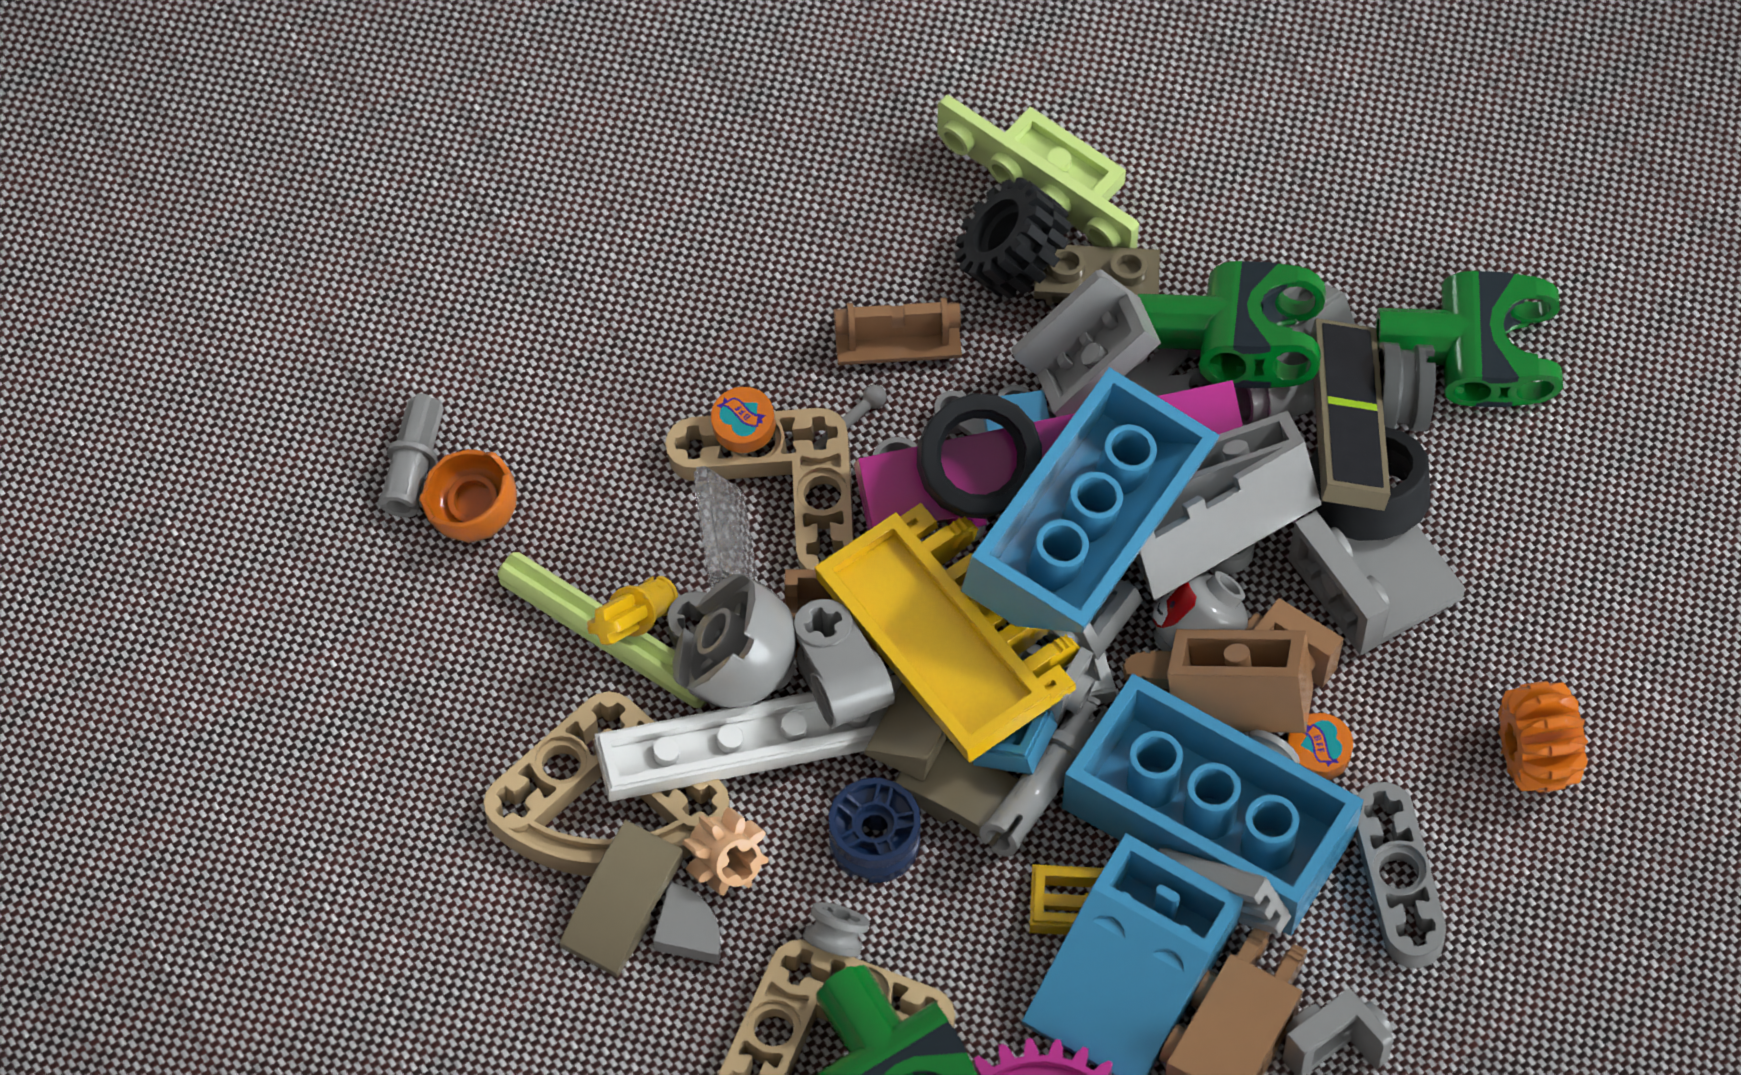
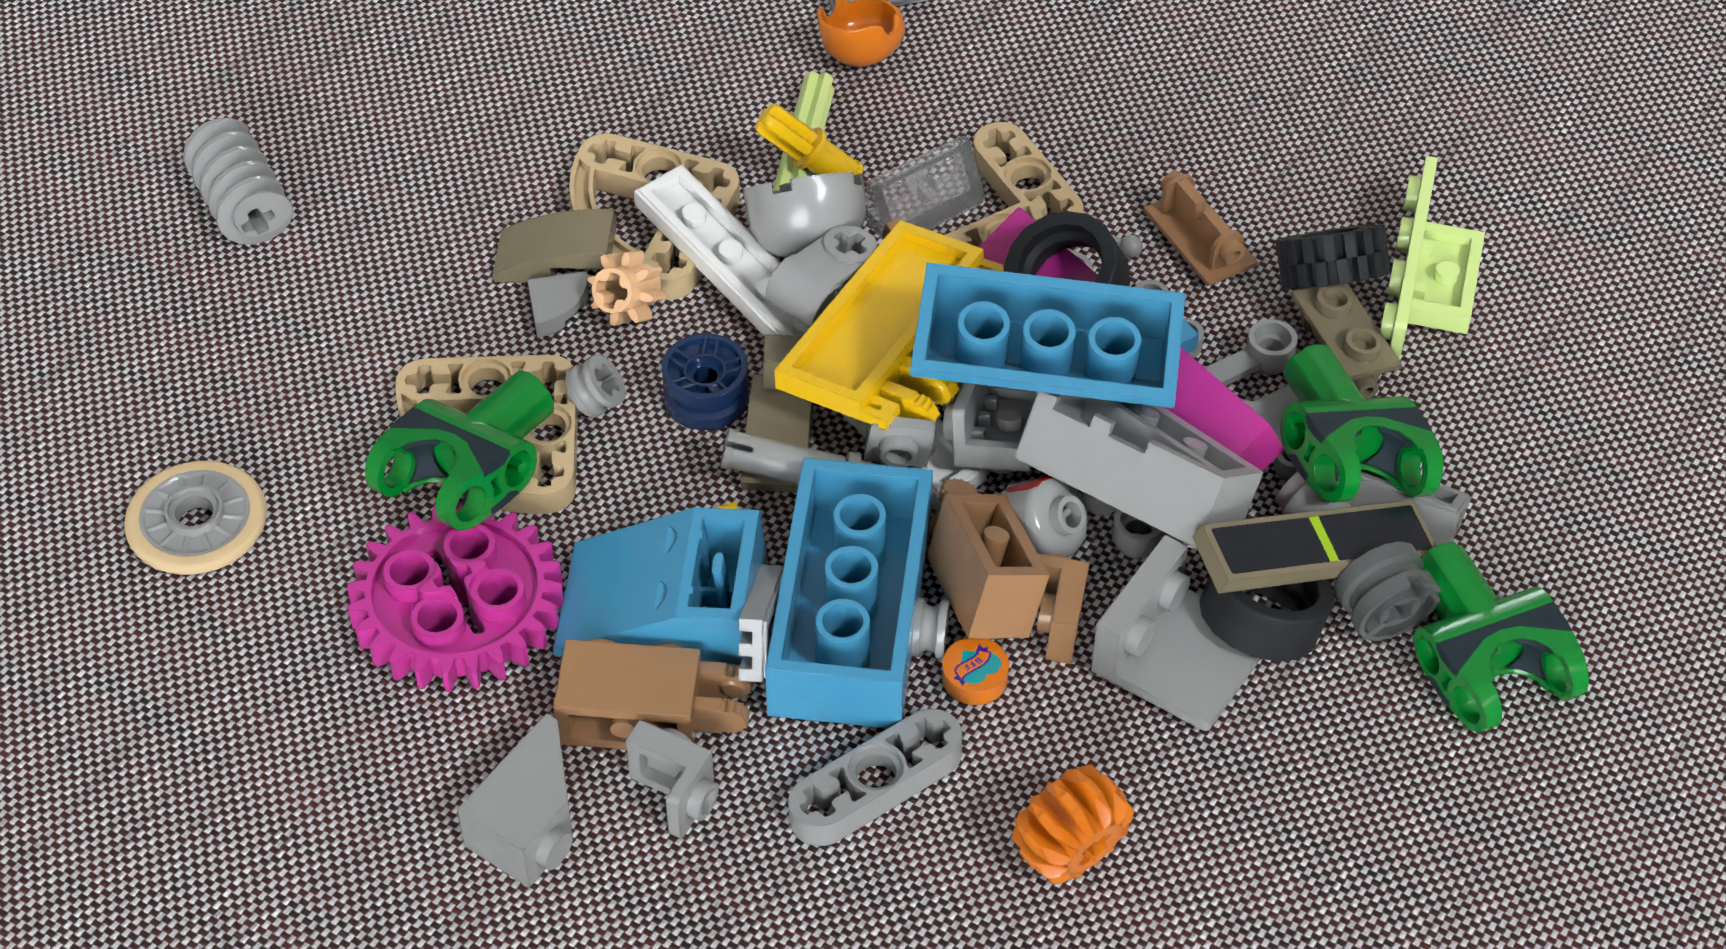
camera: 65 degrees right, 10 degrees down
(743, 419) = (1033, 152): orange tile -> none
(1023, 748) = (830, 430): dark azure tile -> none
(1083, 337) = (1255, 327): light grey bracket -> none

